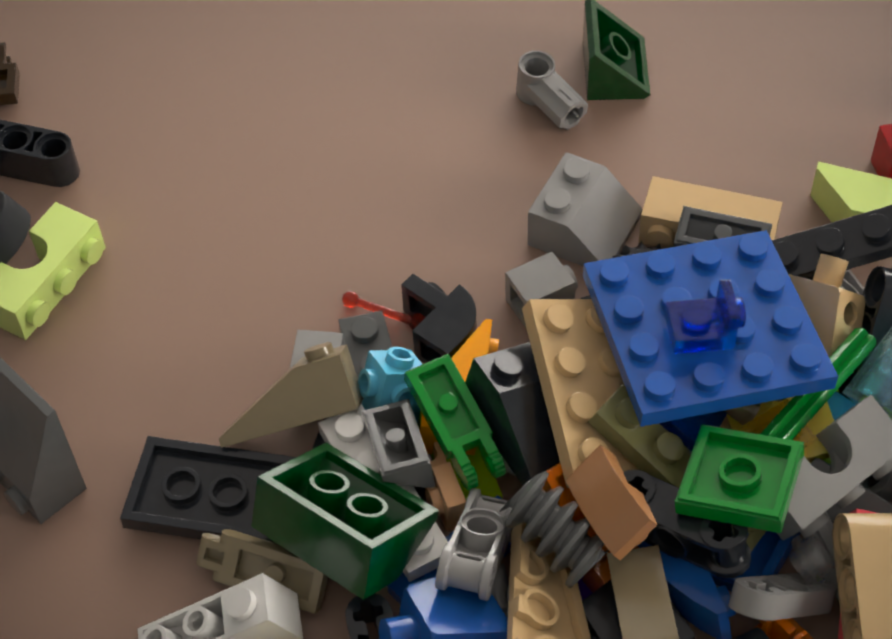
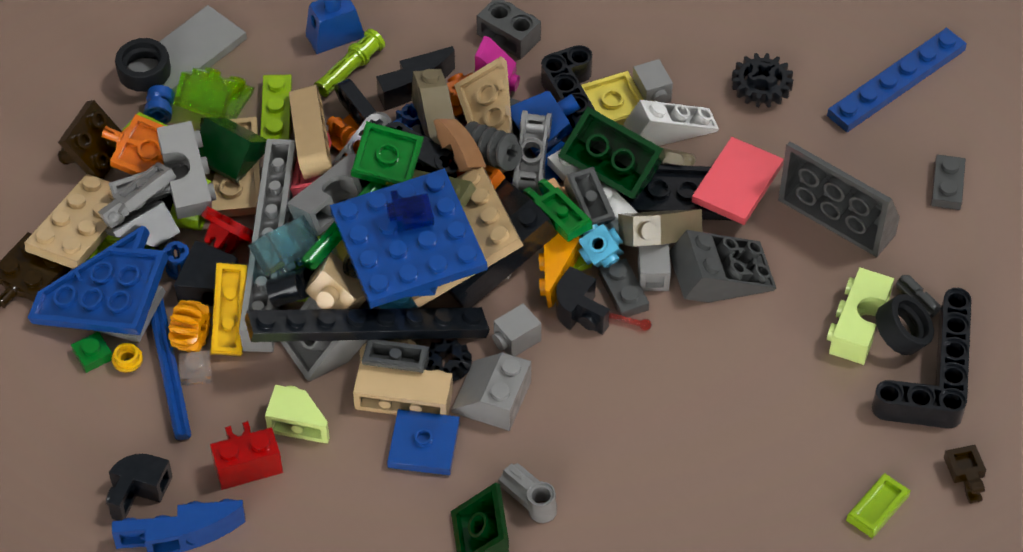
camera: 170 degrees right, 0 degrees up
(121, 60) = (878, 505): none -> lime tile
(143, 484) = (737, 180): none -> coral tile
(215, 359) = (719, 267): none -> dark grey slope
(681, 159) = (423, 442): none -> blue plate

